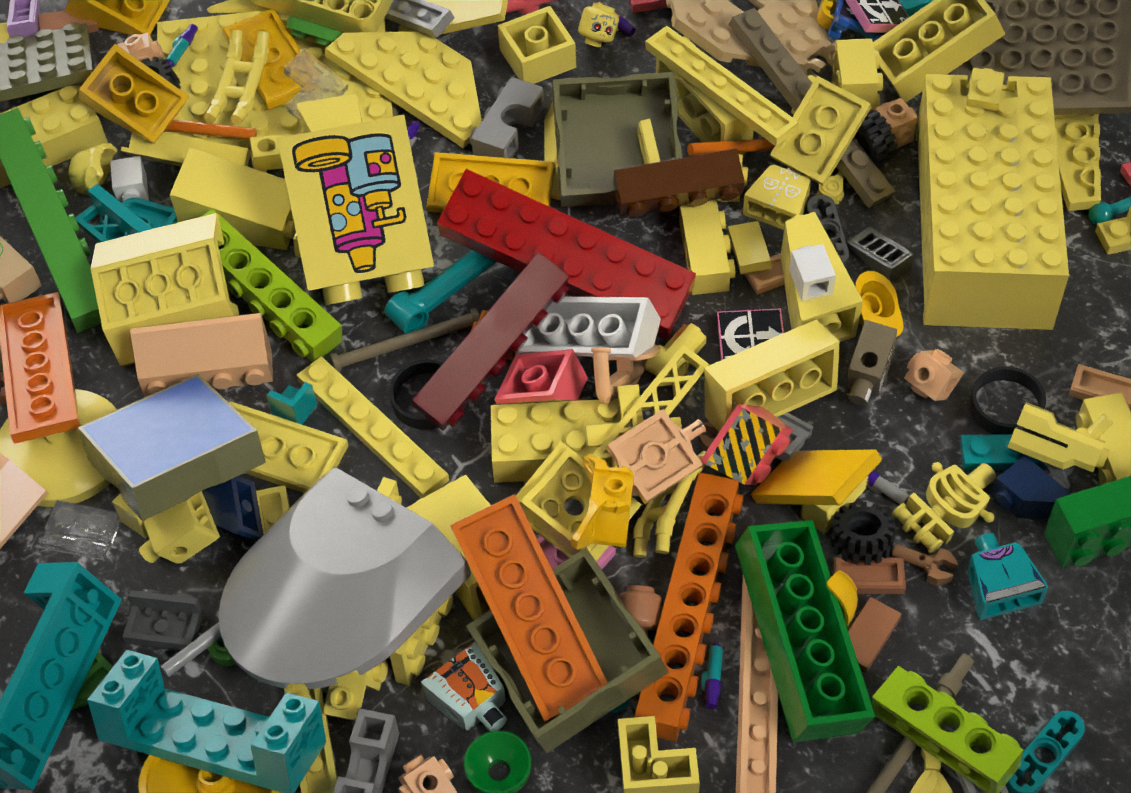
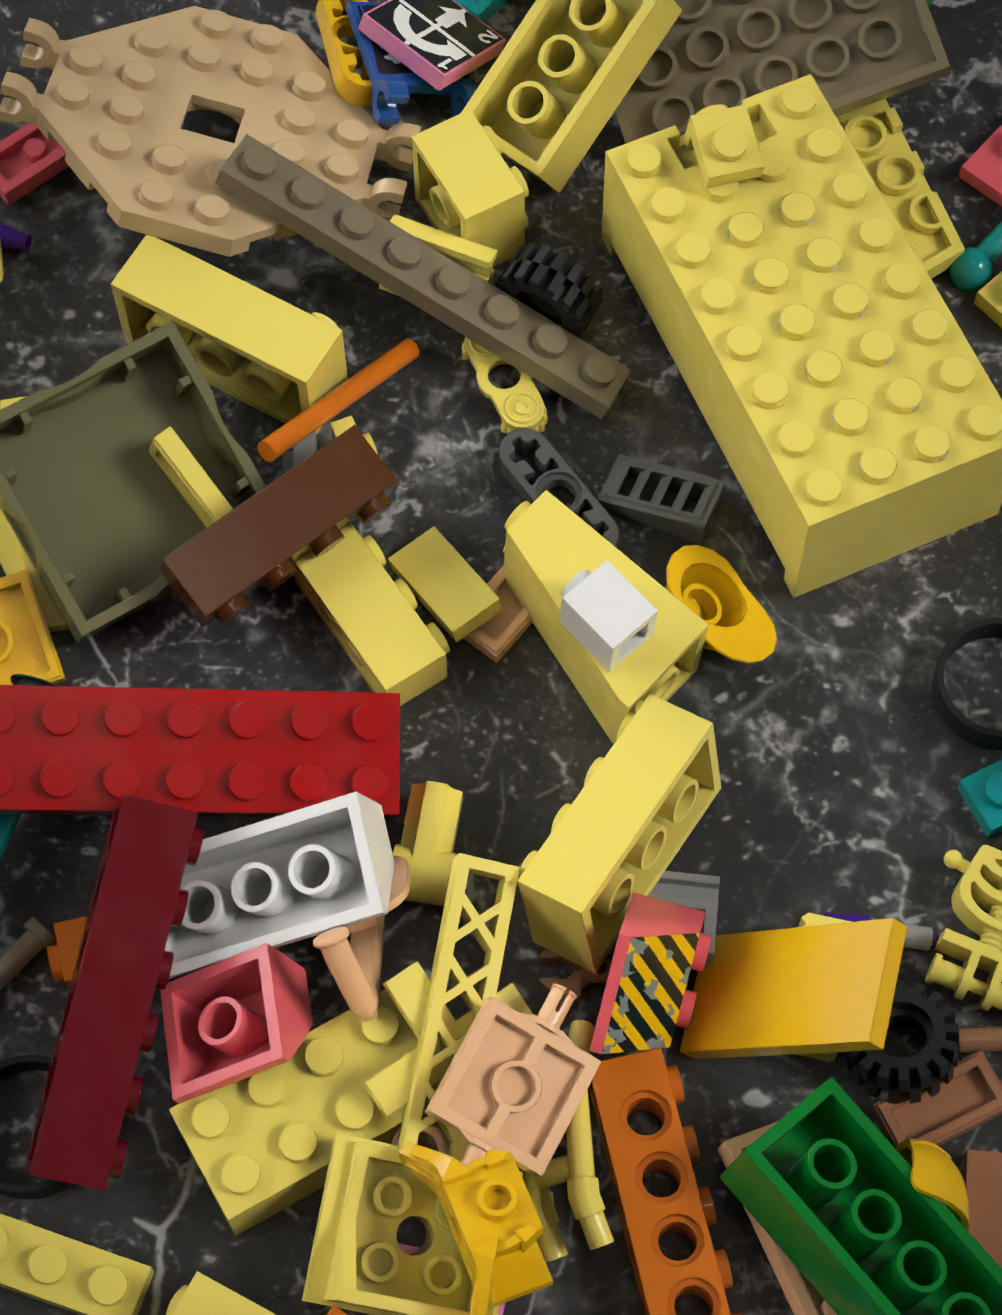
camera: 30 degrees left, 10 degrees up
(722, 86) = (265, 312): light yellow plate -> none
(746, 329) = (529, 754): tile -> none
(777, 196) = (449, 463): light yellow torso -> none
(825, 128) = (470, 321): light yellow plate -> none
(871, 361) = (760, 697): dark tan torso -> none
(902, 120) = (574, 230): light nougat brick -> none
(933, 374) = (865, 693): light nougat brick -> none

